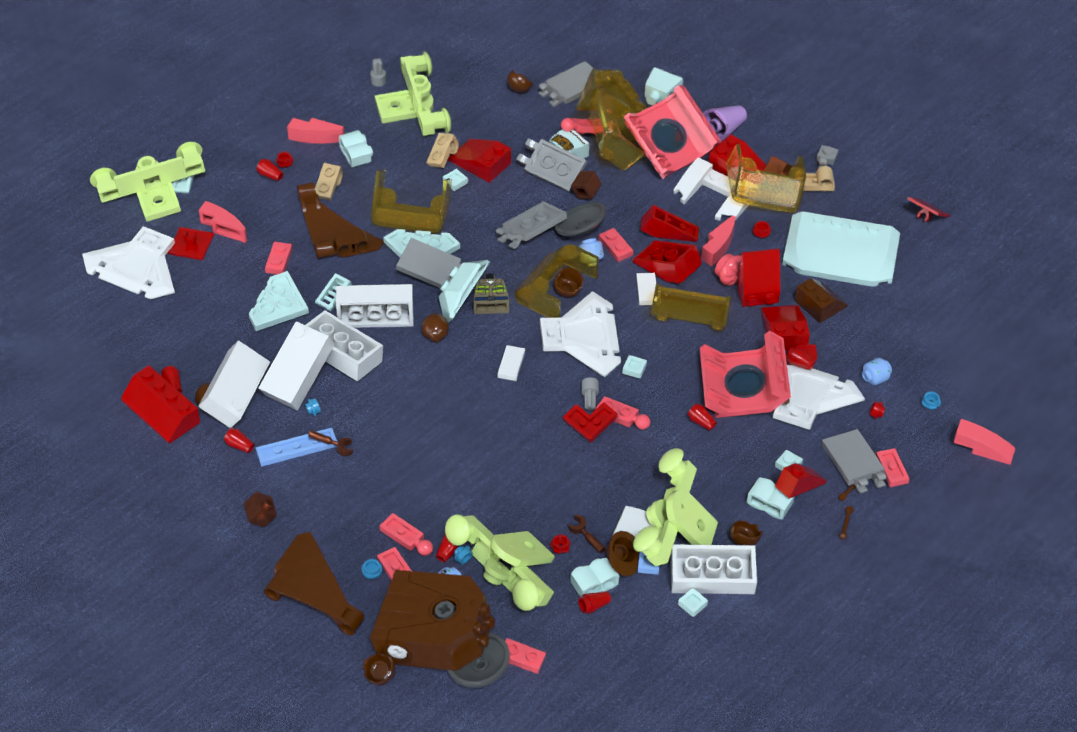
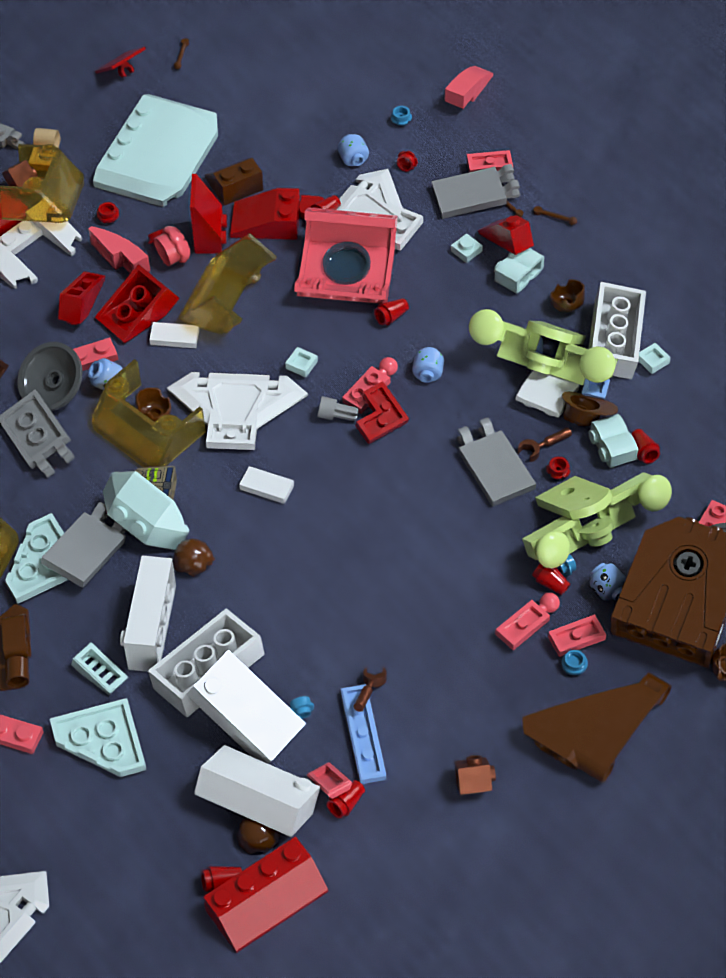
camera: 80 degrees left, 5 degrees up
(249, 426) = (330, 780): none -> coral tile
(558, 502) = (494, 464): none -> light grey tile
(649, 446) = (428, 364): none -> light blue head
(973, 248) = (184, 42): none -> reddish brown hinge

